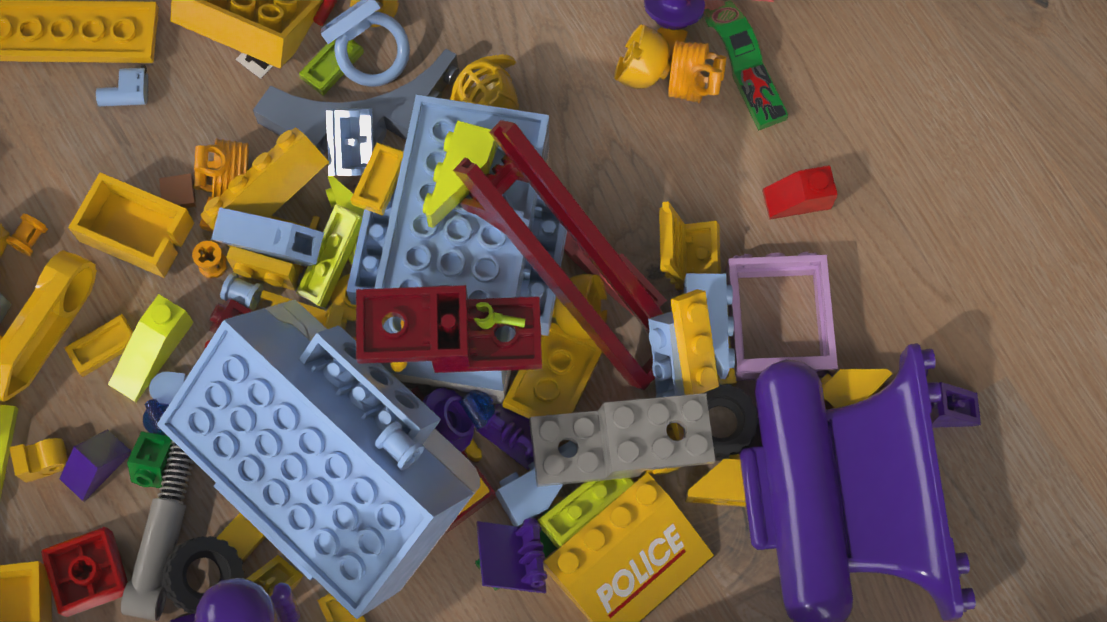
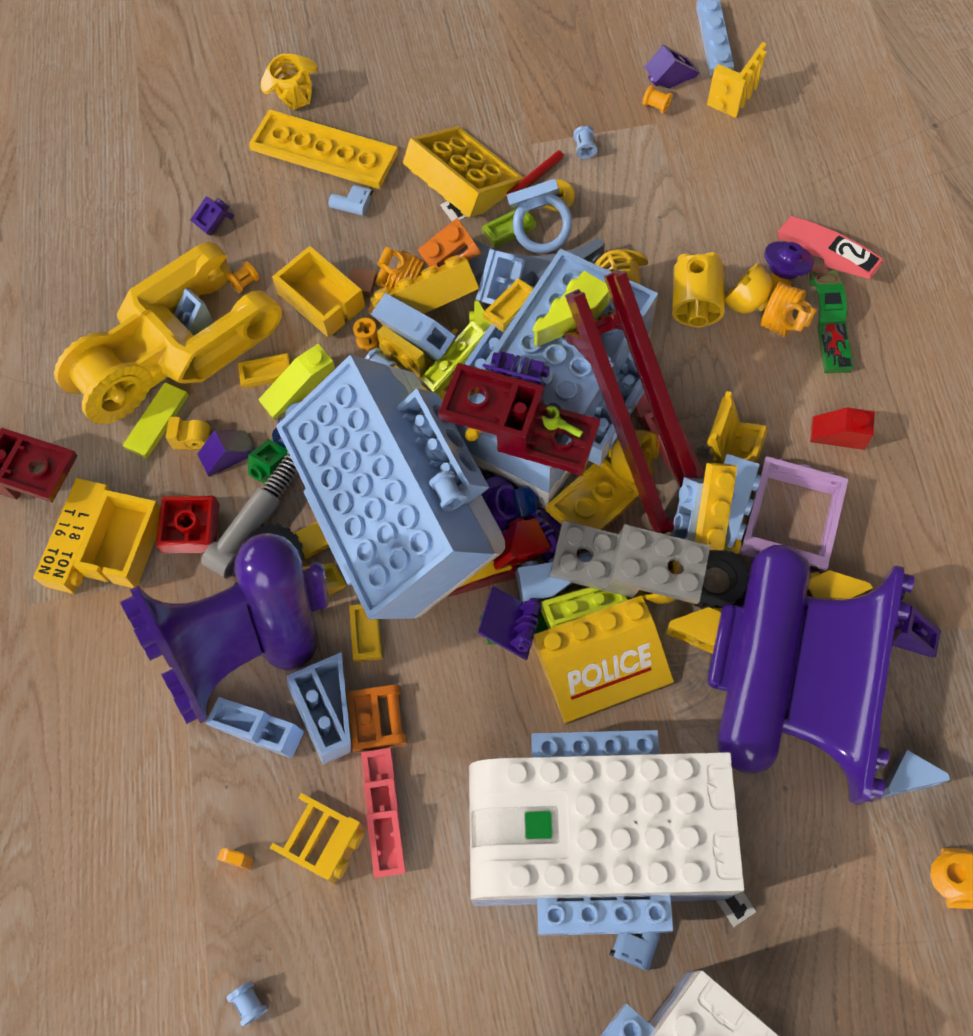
camera: 25 degrees right, 5 degrees down
(269, 115) = (448, 243): none -> orange plate
(408, 277) = (503, 364): none -> dark purple hinge
(492, 455) = (523, 543): none -> red slope
(585, 78) = (698, 289): none -> yellow cylinder
(995, 566) = (912, 774): none -> light blue slope

